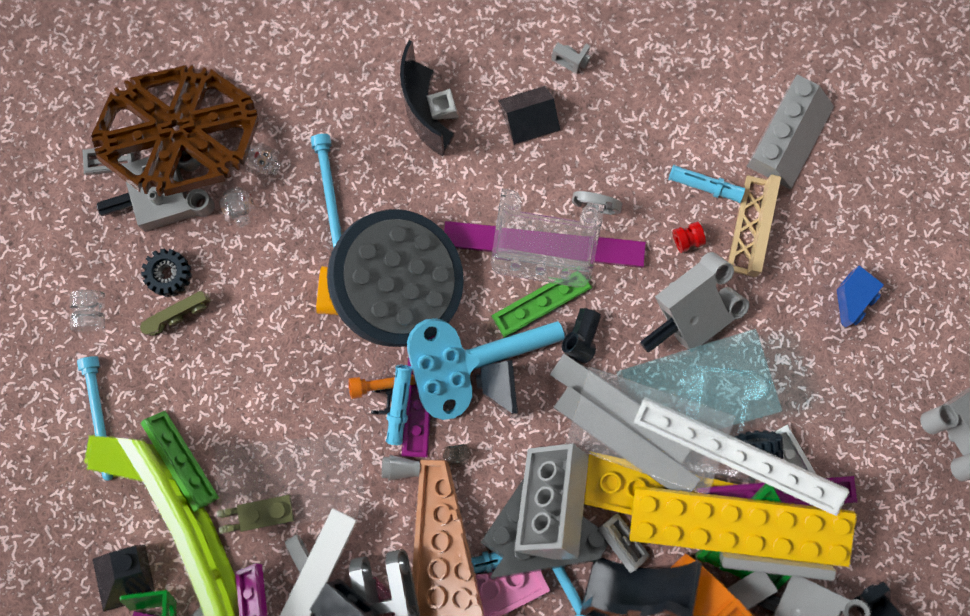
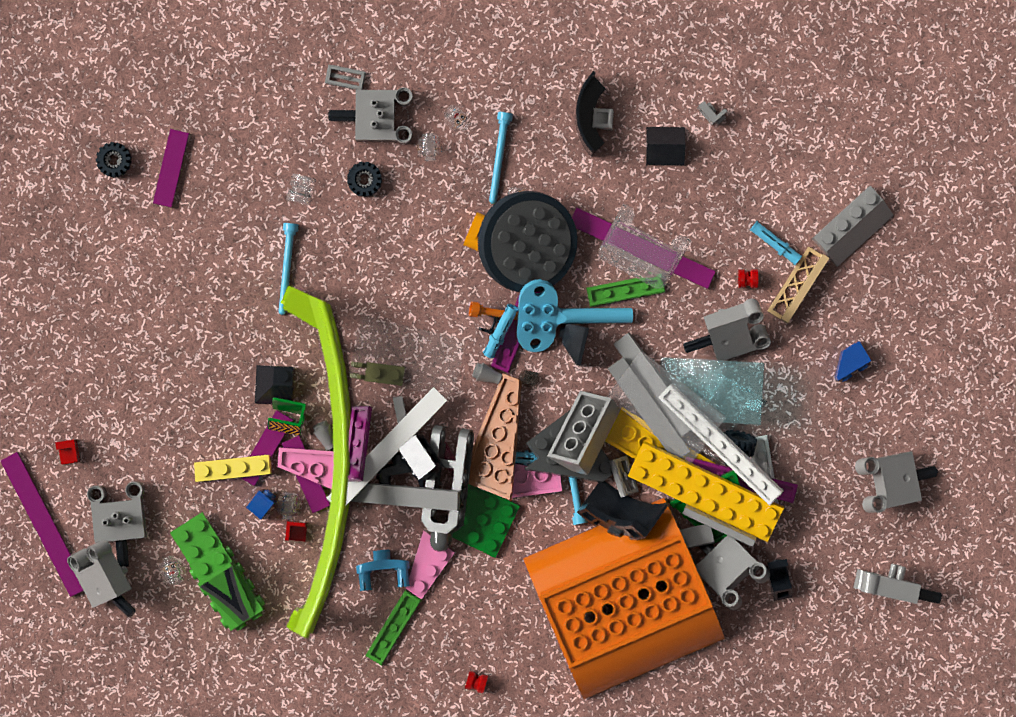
camera: 20 degrees right, 10 degrees up
(166, 142) = (411, 65): reddish brown plate -> none
(174, 313) = (361, 212): olive hinge -> none
(179, 460) = (330, 294): bright green tile -> none
(580, 341) = (642, 328): black piece -> none
(611, 205) = (688, 232): light grey tile -> none

